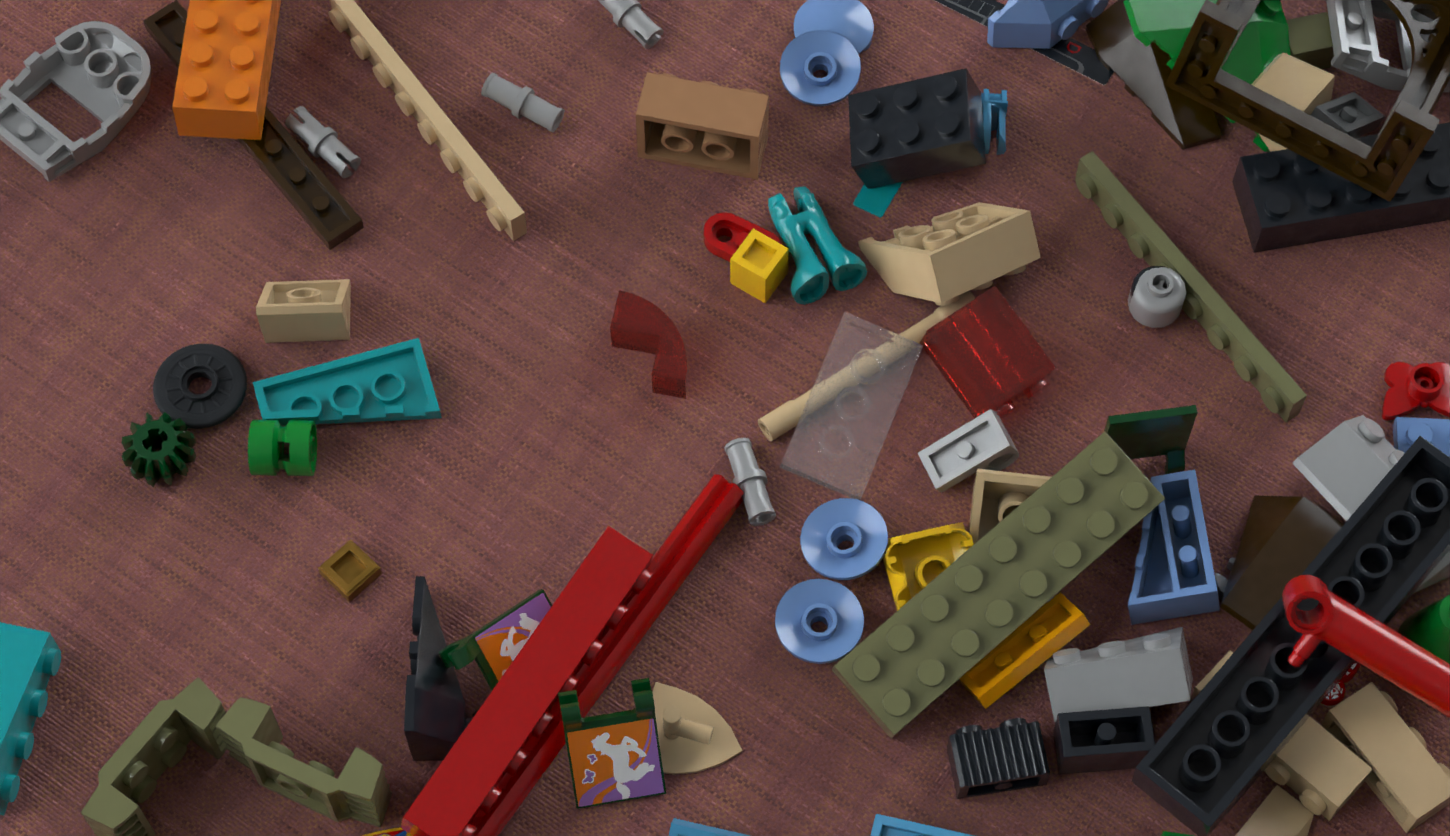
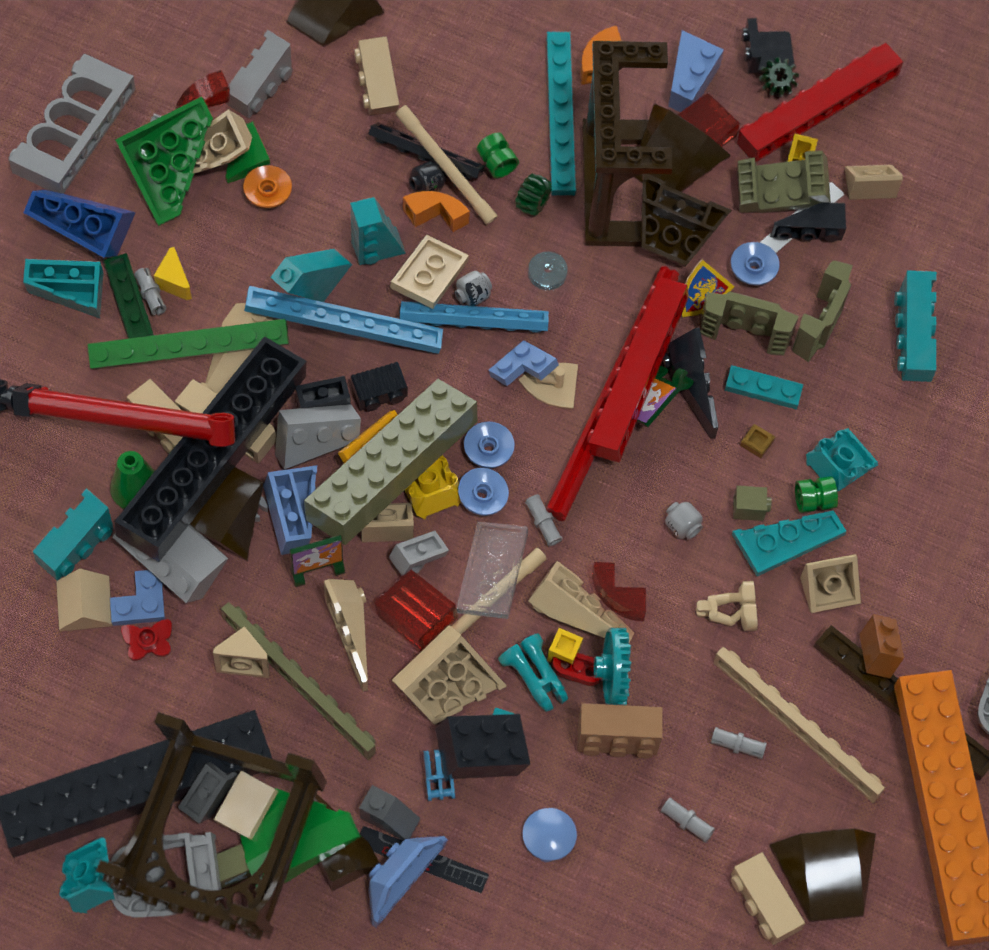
camera: 165 degrees right, 0 degrees up
(147, 462) = (889, 478): dark green gear -> none
(196, 361) = (877, 546): black wheel -> none
(216, 510) = (841, 458): none -> teal slope
(262, 183) = (881, 646): none -> dark orange brick
(309, 665) = (764, 387): none -> teal plate
(323, 142) = (856, 695): light grey pin -> none
(395, 454) = (751, 503): none -> olive brick
(450, 301) = (747, 612): none -> tan piece
(515, 444) = (684, 520): none -> light grey head
(613, 753) = (588, 350): flag -> none
(693, 198) = (614, 666): none -> teal wheel
(729, 774) = (523, 359): none -> medium blue plate
(730, 339) = (566, 601): none -> tan wedge
(815, 52) = (554, 784): medium blue dish -> none
(1070, 80) = (388, 813): none -> dark grey slope
(1102, 361) = (347, 612): none -> tan wedge
(1155, 300) = (317, 664): light grey head -> none
(1278, 312) = (241, 656): none -> tan slope

